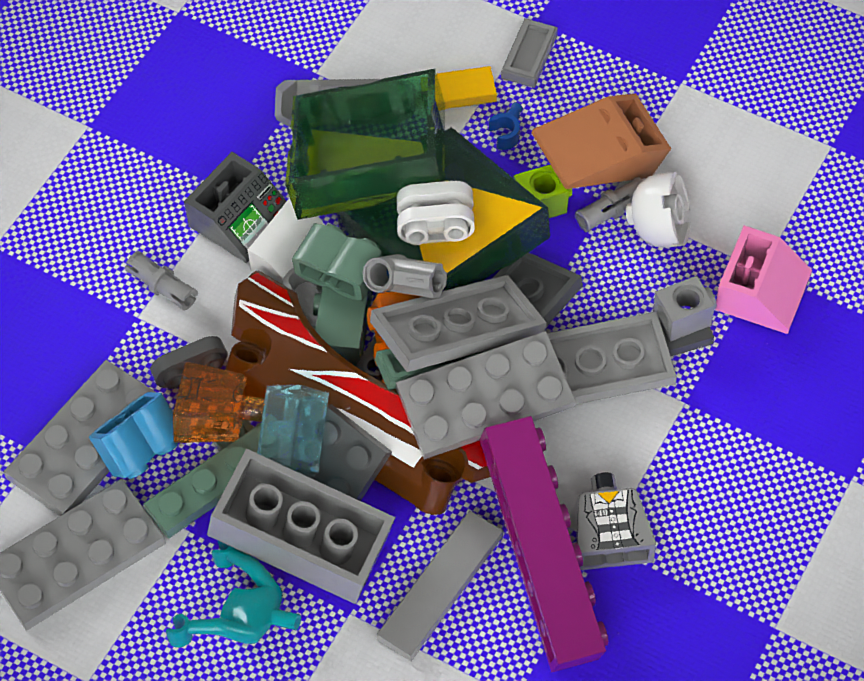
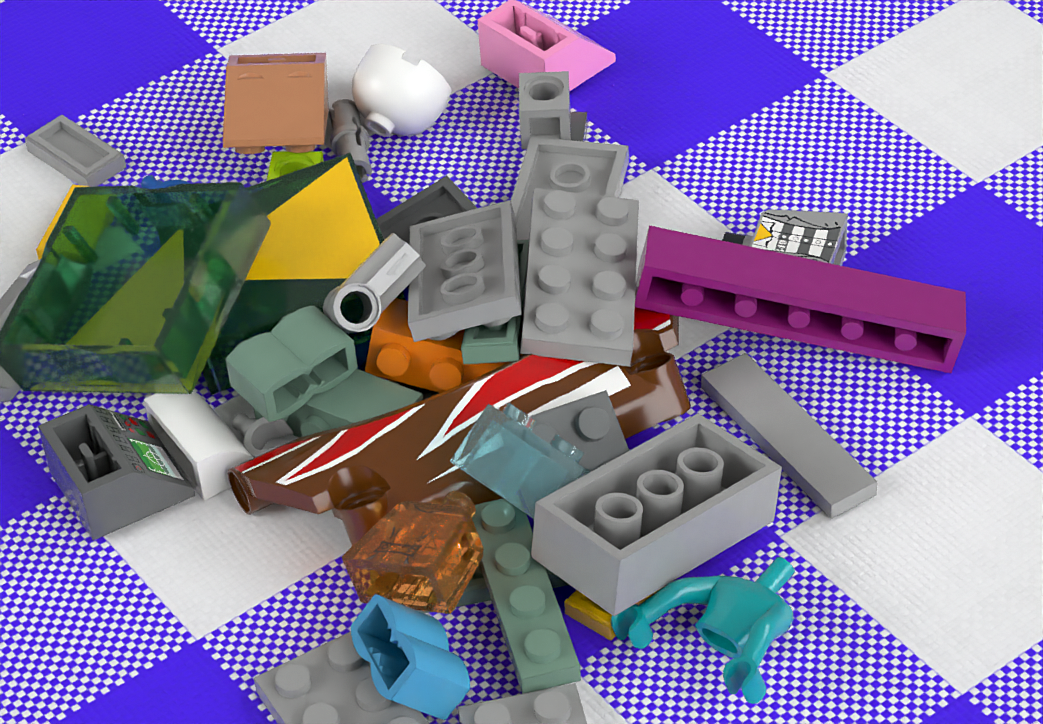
camera: 65 degrees left, 15 degrees down
(161, 280) = (163, 588): light grey pin -> none
(169, 367) = (321, 601): dark grey plate -> none
(435, 212) = (297, 237): white brick -> none

